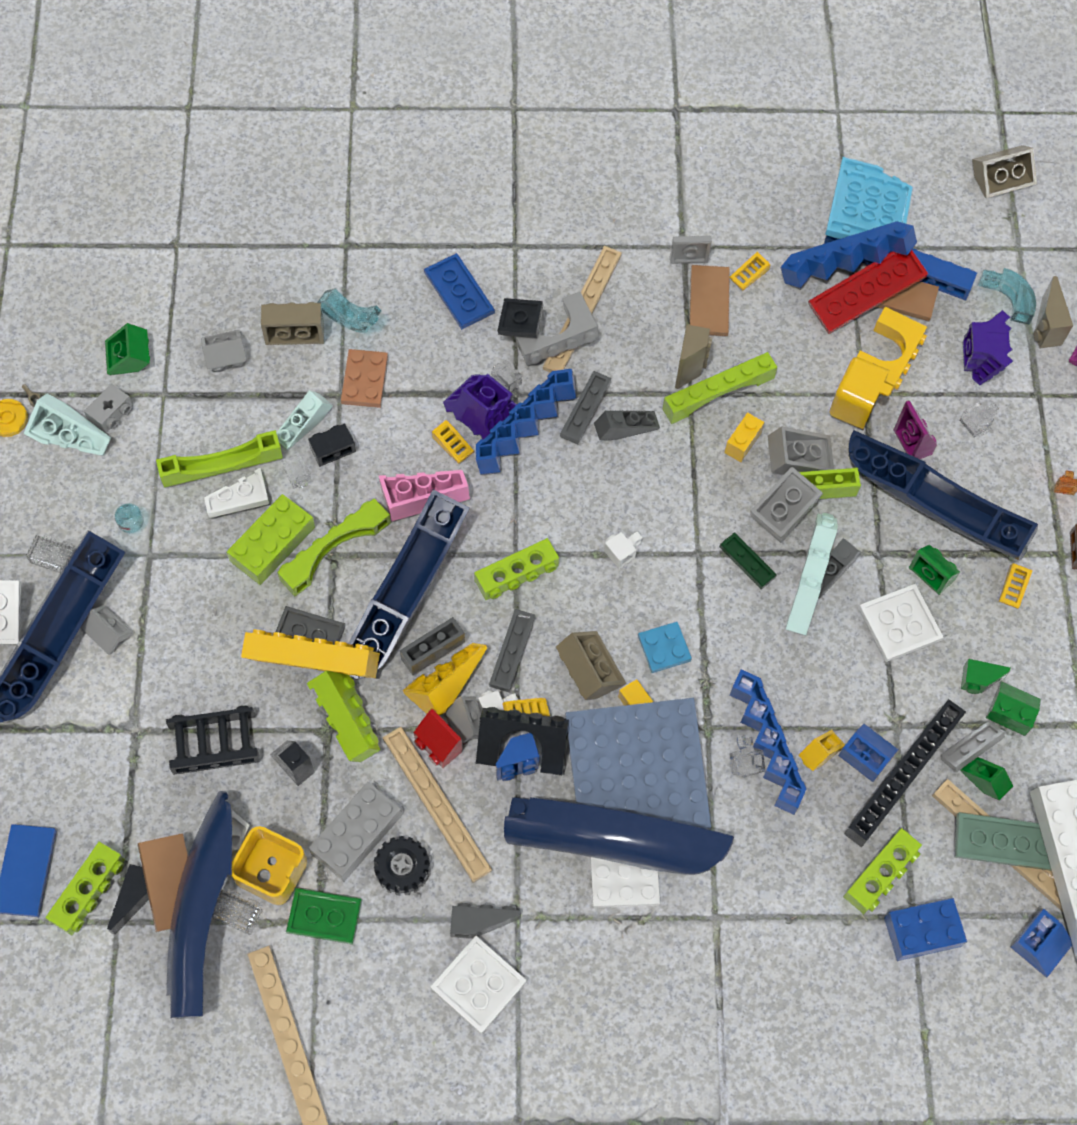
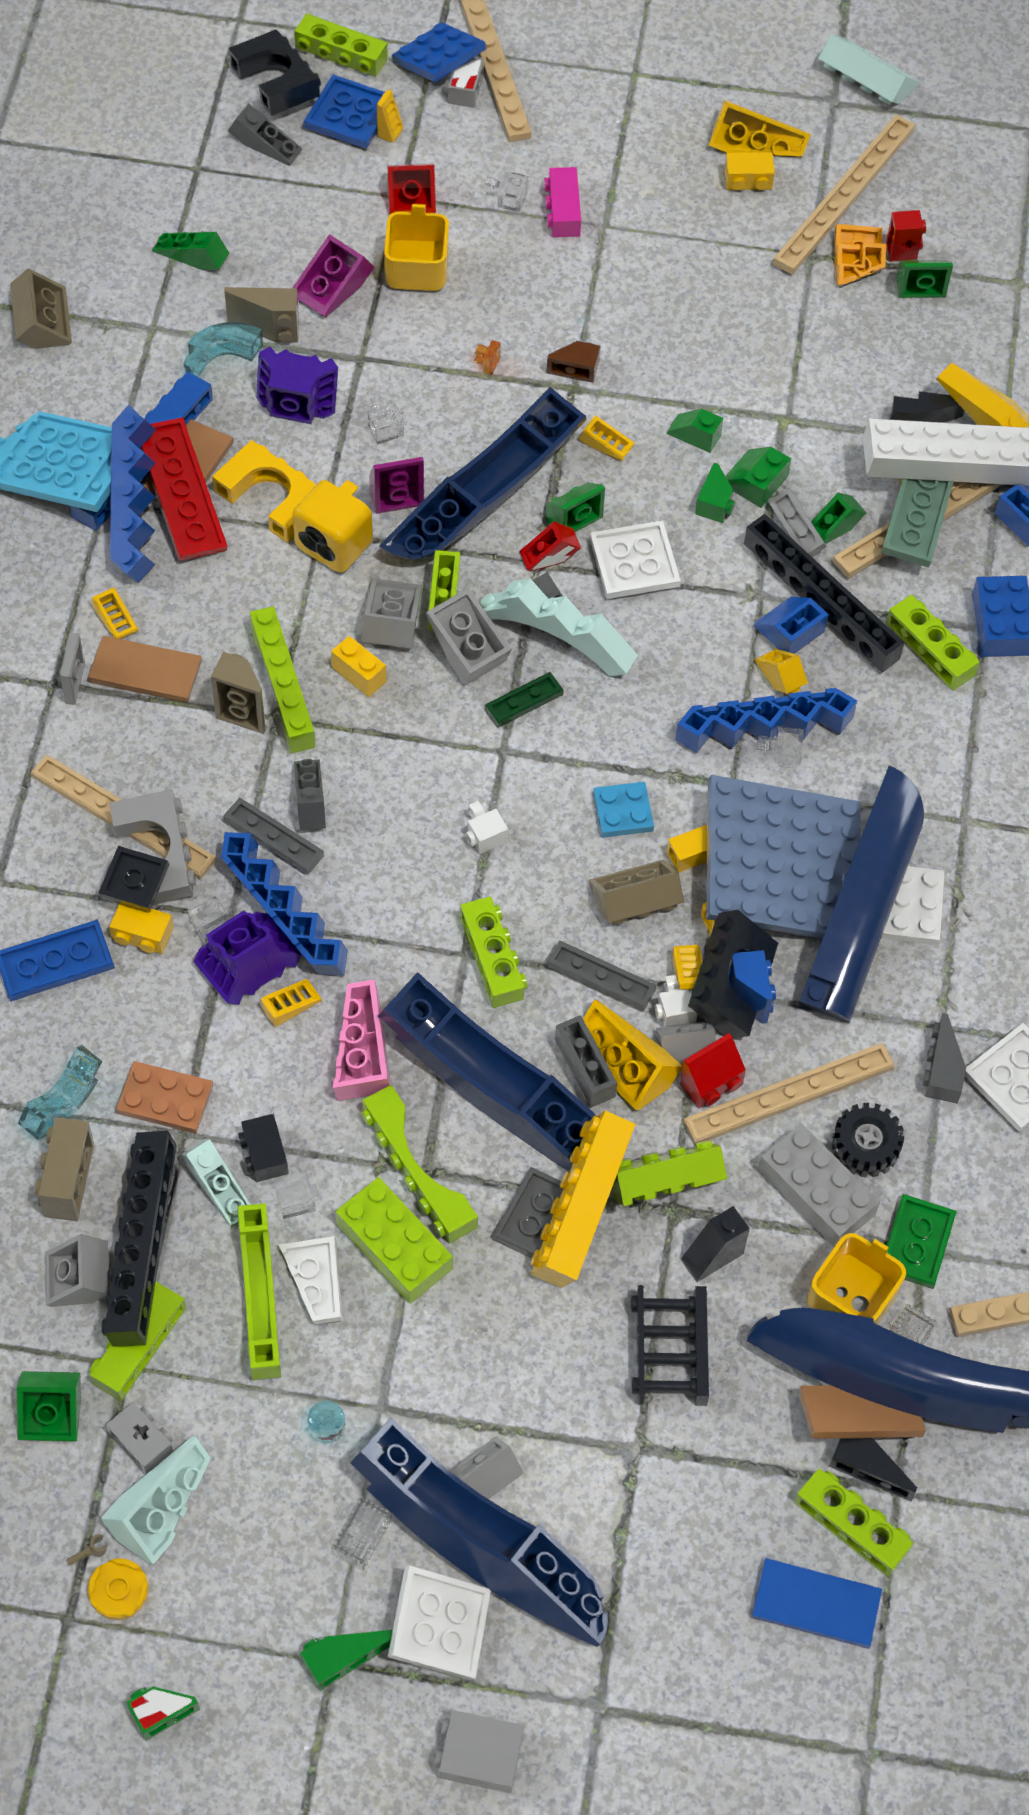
camera: 80 degrees left, 5 degrees down
(177, 394) = (123, 1365): none -> lime brick
(246, 377) = (144, 1217): none -> black brick
(490, 343) = (141, 928): none -> yellow brick
(893, 557) = (550, 547): none -> red slope
(1046, 654) = (697, 428): none -> green slope

